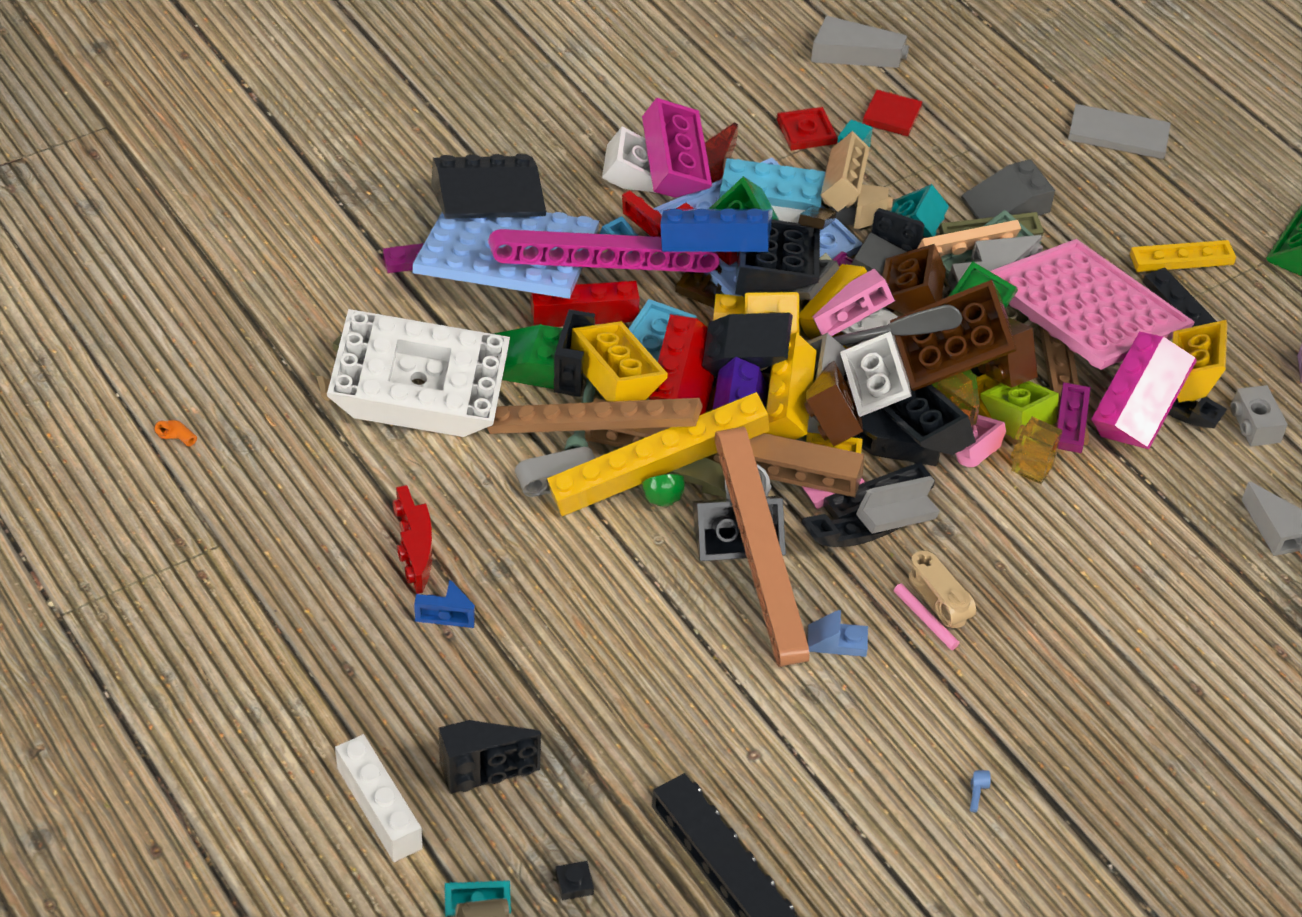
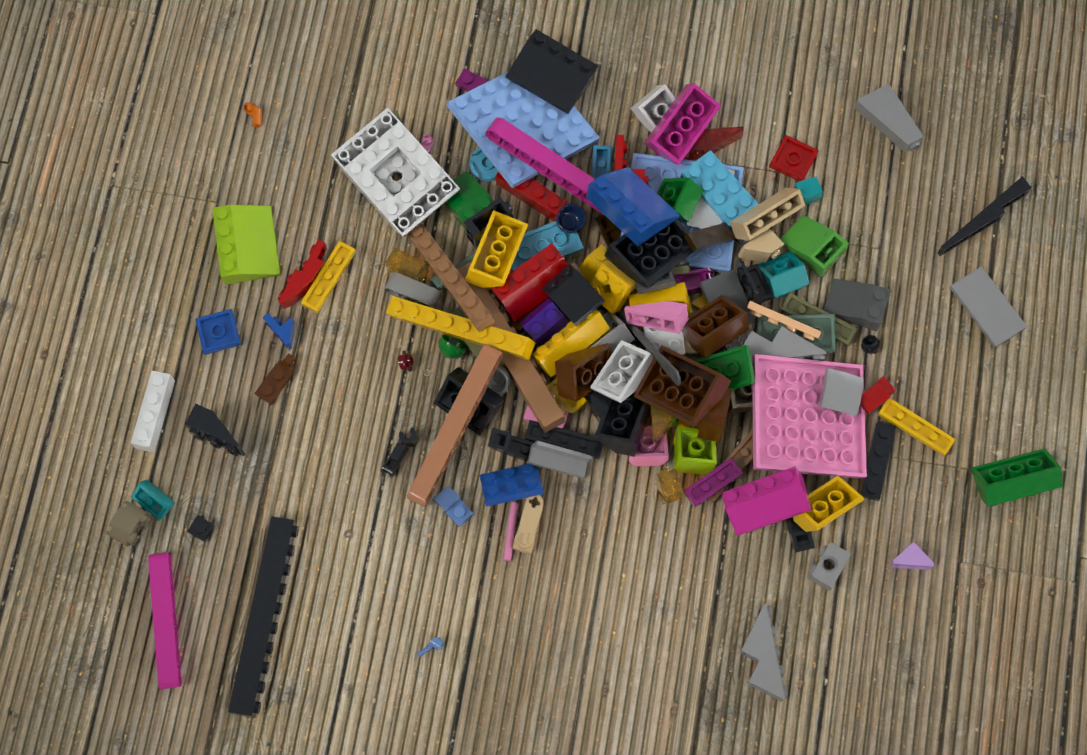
camera: 50 degrees right, 25 degrees up
(302, 557) = (245, 242): none -> lime slope
(366, 666) = (218, 331): none -> blue tile
(445, 523) = (328, 277): none -> yellow plate
(494, 663) = (276, 379): none -> reddish brown hinge
(503, 313) = (482, 167): none -> medium azure tile
(523, 445) = (406, 265): none -> clear yellow brick
(626, 539) = (405, 361): none -> dark red plate
(659, 291) = (571, 218): none -> dark blue hair
(715, 614) = (399, 452): none -> black piece
(878, 566) = (511, 484): none -> blue plate
(892, 112) = (859, 186): red tile -> none
(915, 170) = (814, 244): none -> bright green slope
(1033, 62) = (988, 216): none -> black slope
(1062, 219) = (870, 344): none -> black plate
(1092, 262) = (841, 391): none -> light grey slope
(1120, 250) = (876, 394): none -> red slope

